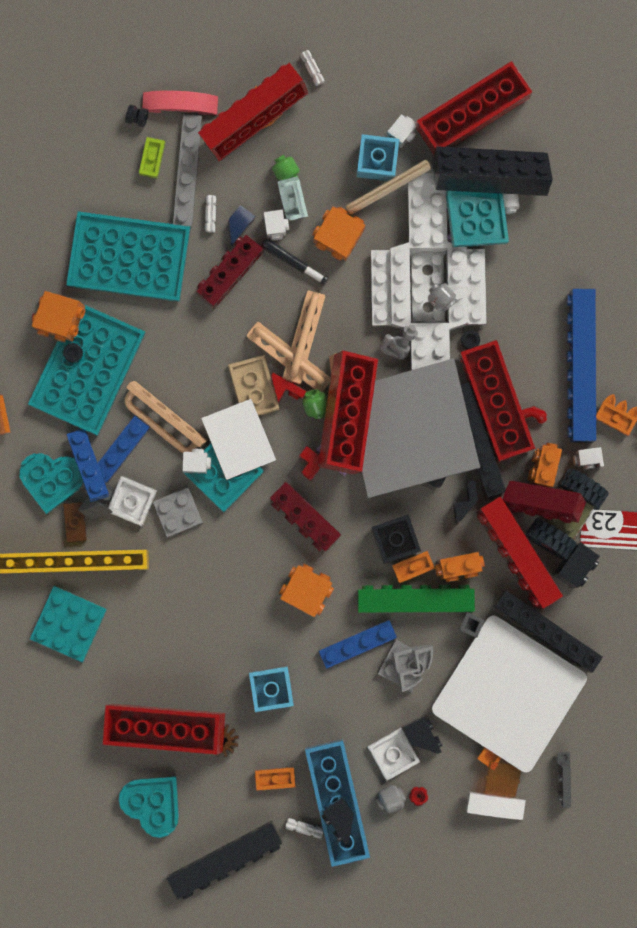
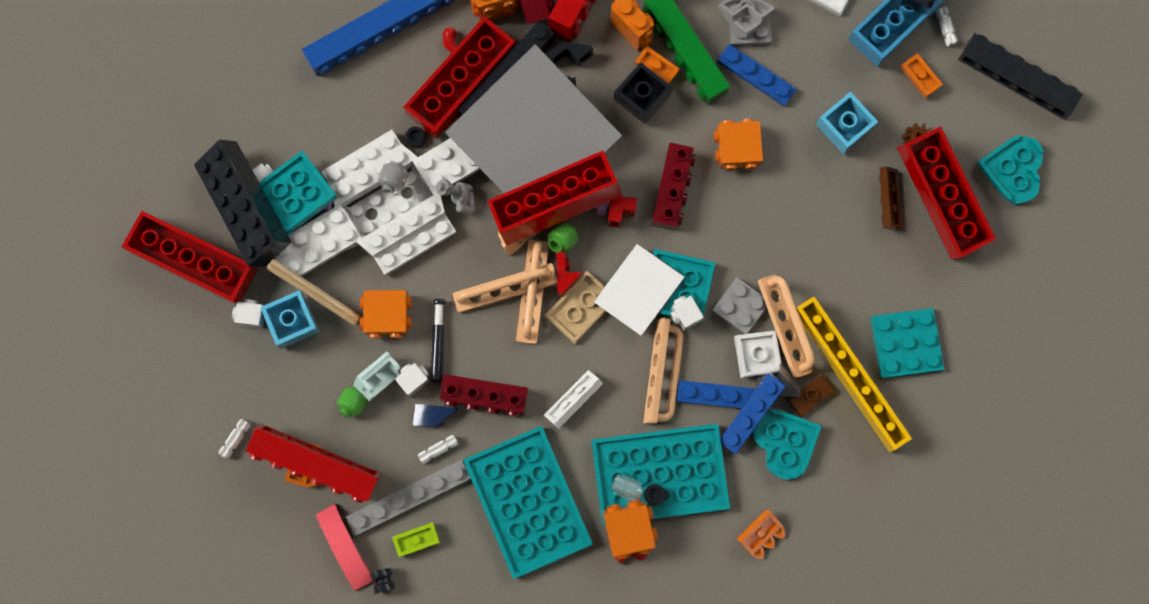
camera: 115 degrees left, 5 degrees down
(90, 334) = (627, 487): none -> clear brick
(100, 530) = (791, 323): none -> light nougat piece
(184, 337) = (573, 399): none -> white plate
(189, 685) = (890, 198): none -> reddish brown plate

